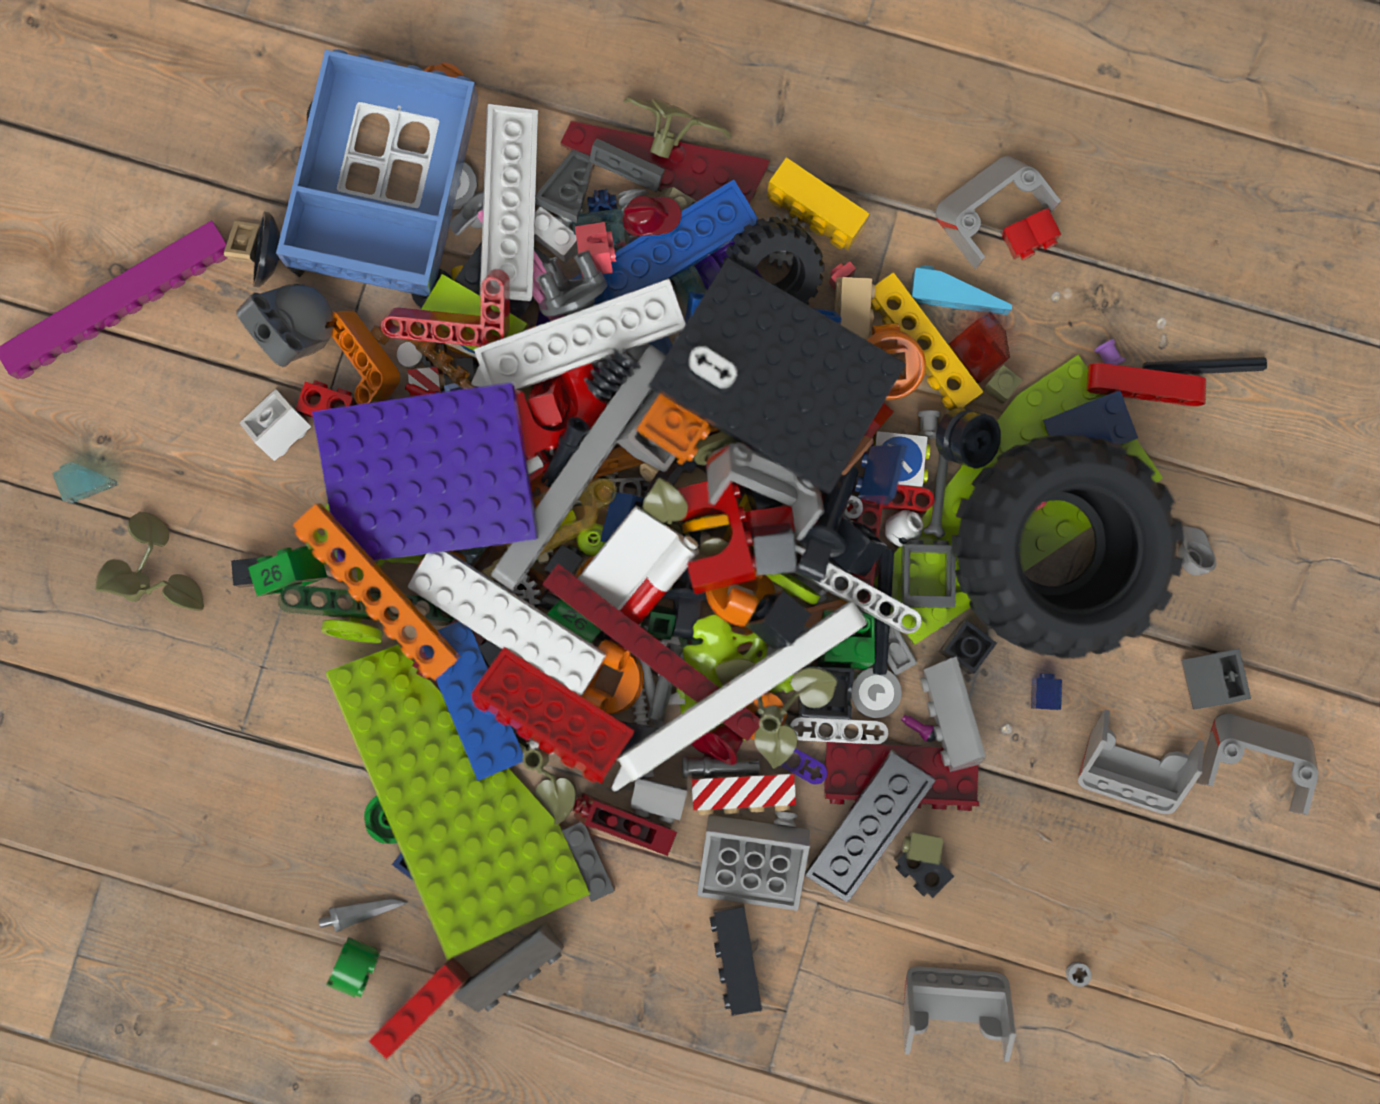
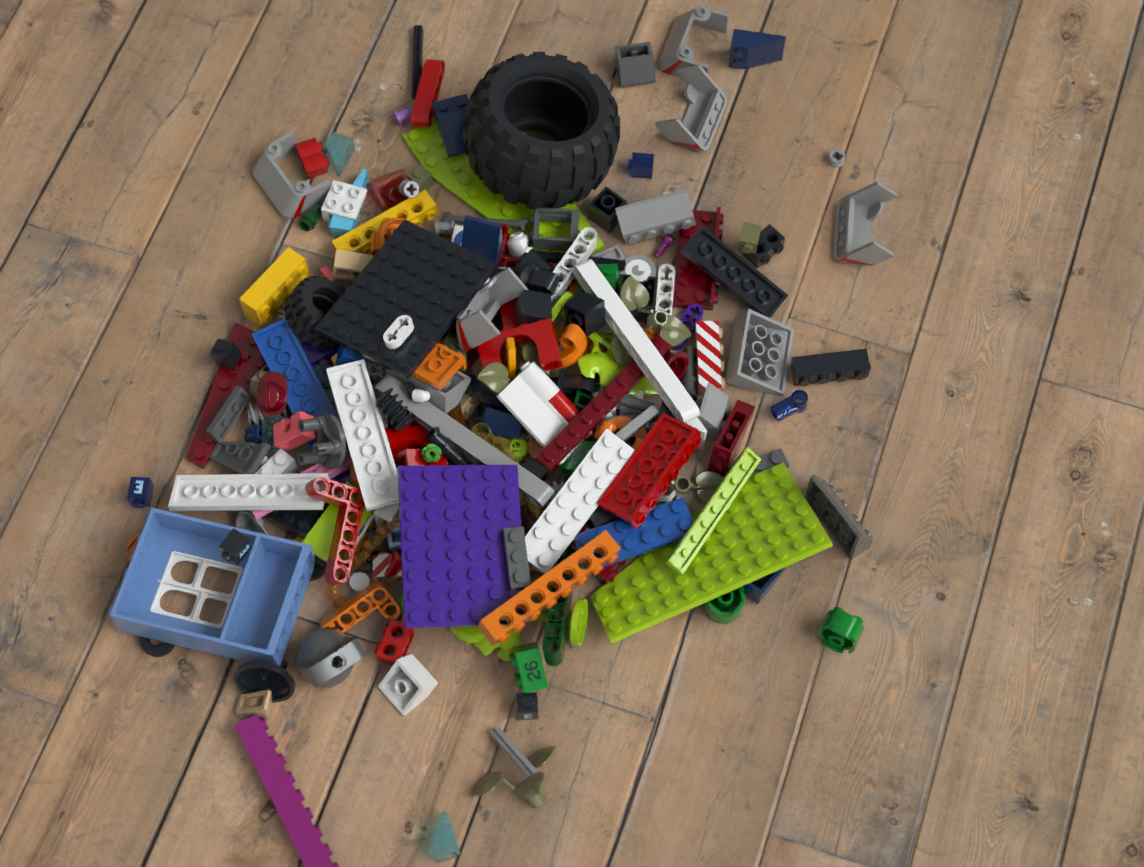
camera: 85 degrees left, 20 degrees down
(181, 562) = (513, 752): none -> light grey axle
(348, 915) = (799, 637): flat silver bar -> none
(411, 546) = (516, 557): none -> dark grey plate
(414, 190) = (235, 546): none -> black brick
(419, 1008) = (890, 594): red arch -> none
(507, 801) = (713, 511): none -> lime tile
(519, 70) = (140, 492): none -> clear blue brick
(551, 426) = (431, 448): none -> bright green plate
(623, 695) = (638, 423): none -> light grey beam
(635, 400) = (416, 394): none -> white arm
(665, 138) = (212, 387): olive plant -> none
(674, 900) = (788, 406): none -> clear blue piece
(713, 151) = (225, 354): none -> black brick
(785, 819) = (728, 331): light grey bush -> none
(934, 241) = (310, 218): none -> dark green cone
(958, 283) = (343, 201): none -> white bracket
(968, 437) = (457, 198): black wheel -> none
(980, 369) = (410, 193): none -> light grey bush
(1042, 270) = (339, 151): none -> clear light blue slope
(1253, 851) = (755, 49): none -> dark blue slope

